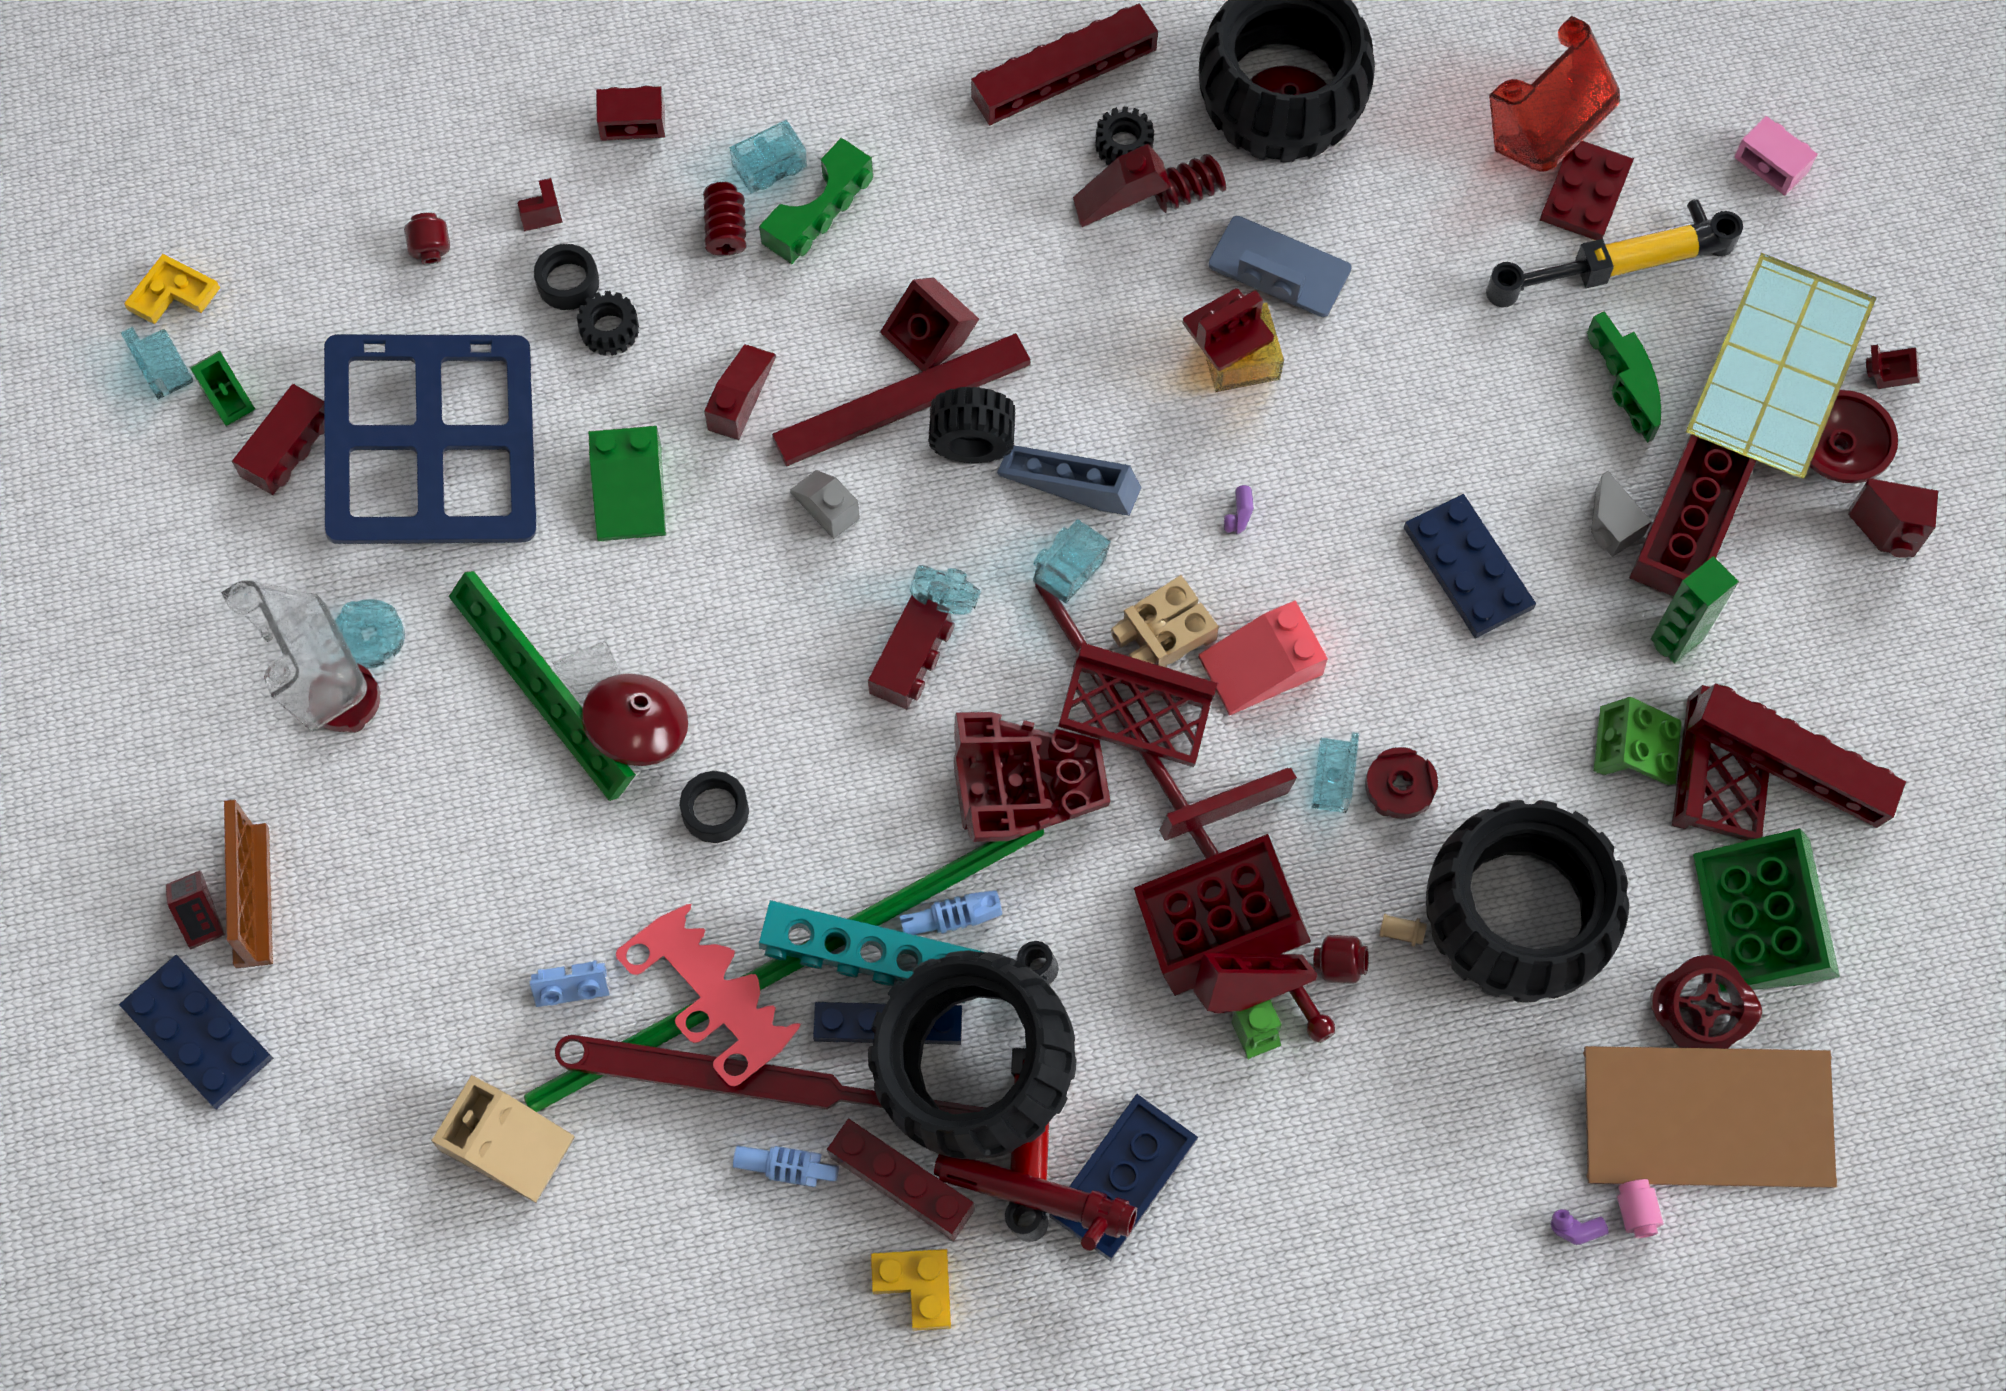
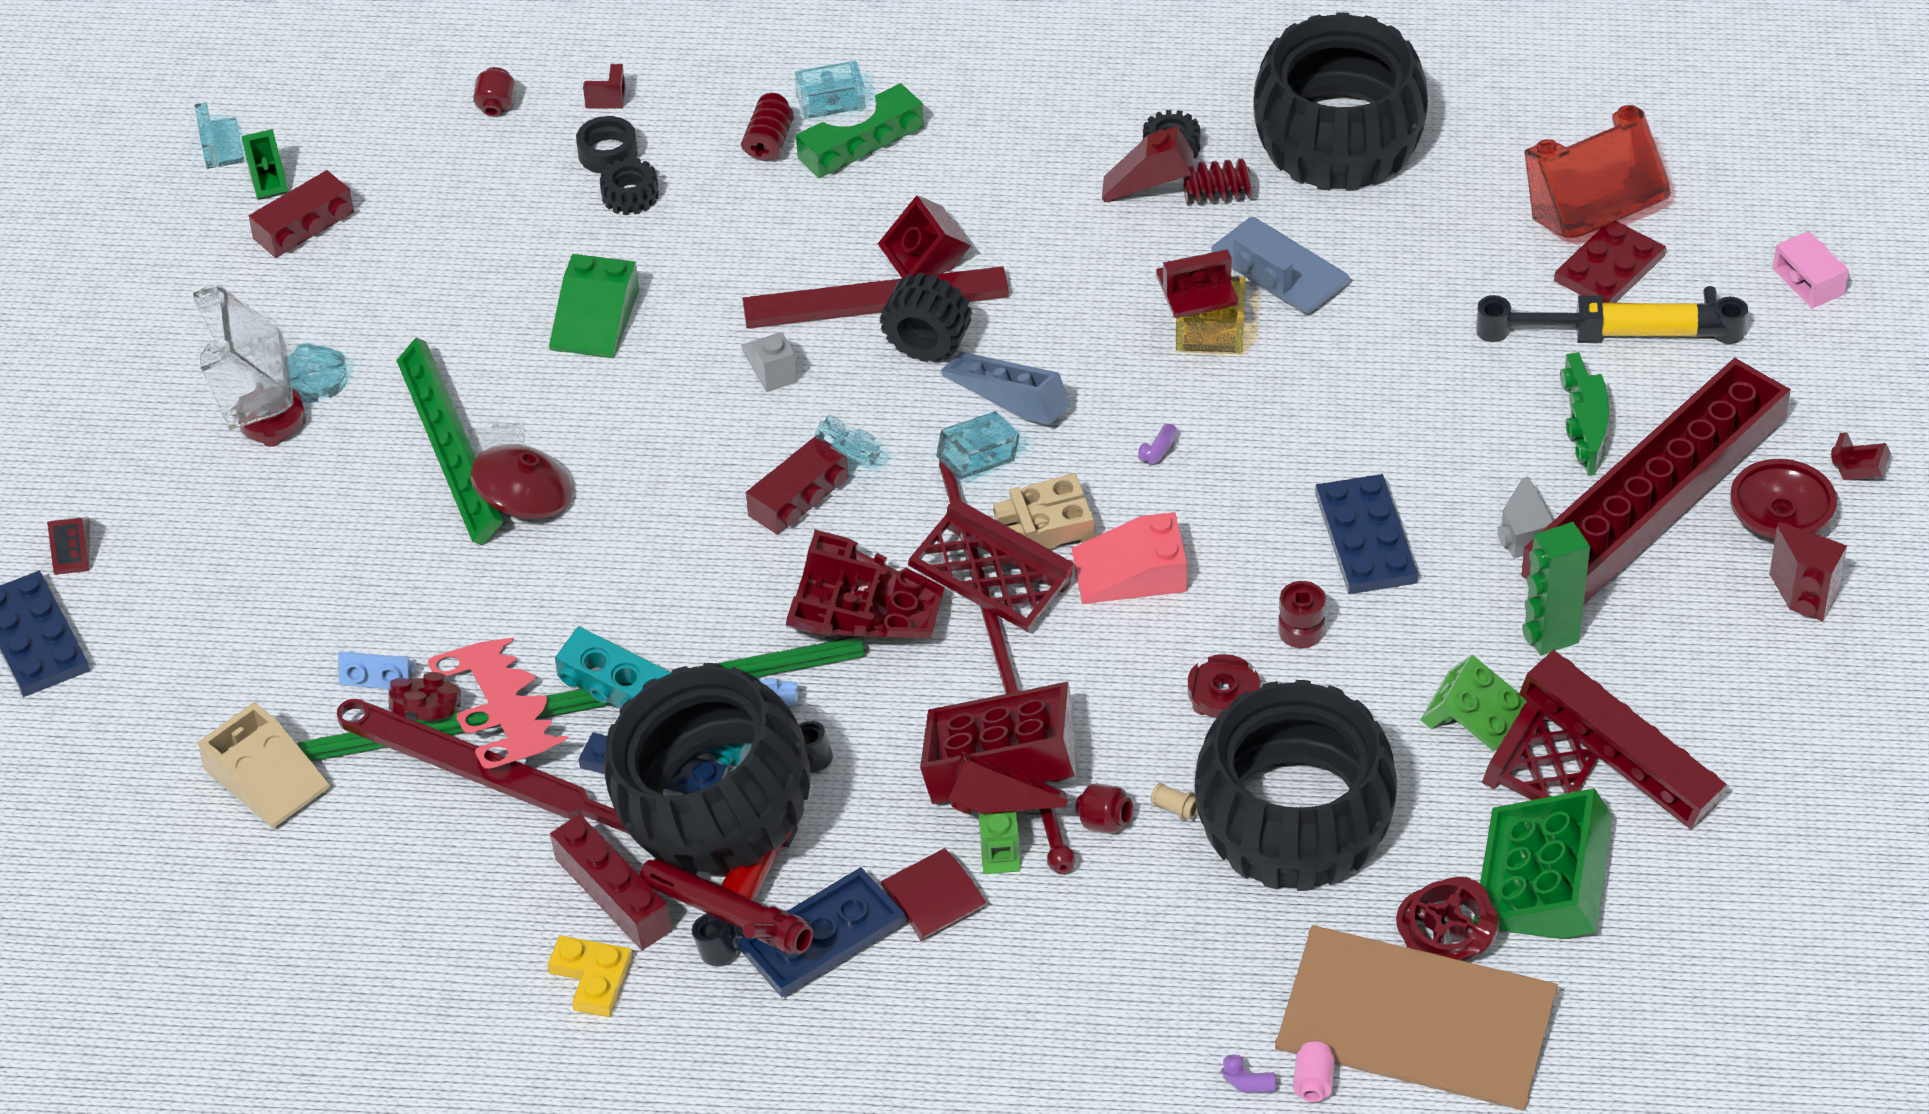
camera: 20 degrees right, 20 degrees down
(170, 281) = (252, 81): yellow plate -> none
(247, 888) = (120, 527): dark orange fence -> none
(429, 440) = (429, 238): dark blue window -> none
(630, 113) = (717, 33): dark red brick -> none
(632, 993) = (427, 696): none -> dark red plate
(709, 781) = (565, 584): black tyre -> none
(738, 391) = (722, 260): dark red slope -> none
(785, 1165) = (511, 850): light blue hinge -> none
(1064, 63) = (1138, 71): dark red brick -> none
(1213, 1101) = (934, 893): none -> dark red slope
(1227, 803) = (1043, 659): dark red tile -> none
(1335, 774) = (1163, 666): clear light blue panel -> none
(1449, 683) = (1301, 614): none -> dark red wheel
(1781, 365) = (1734, 422): clear light blue piece -> none

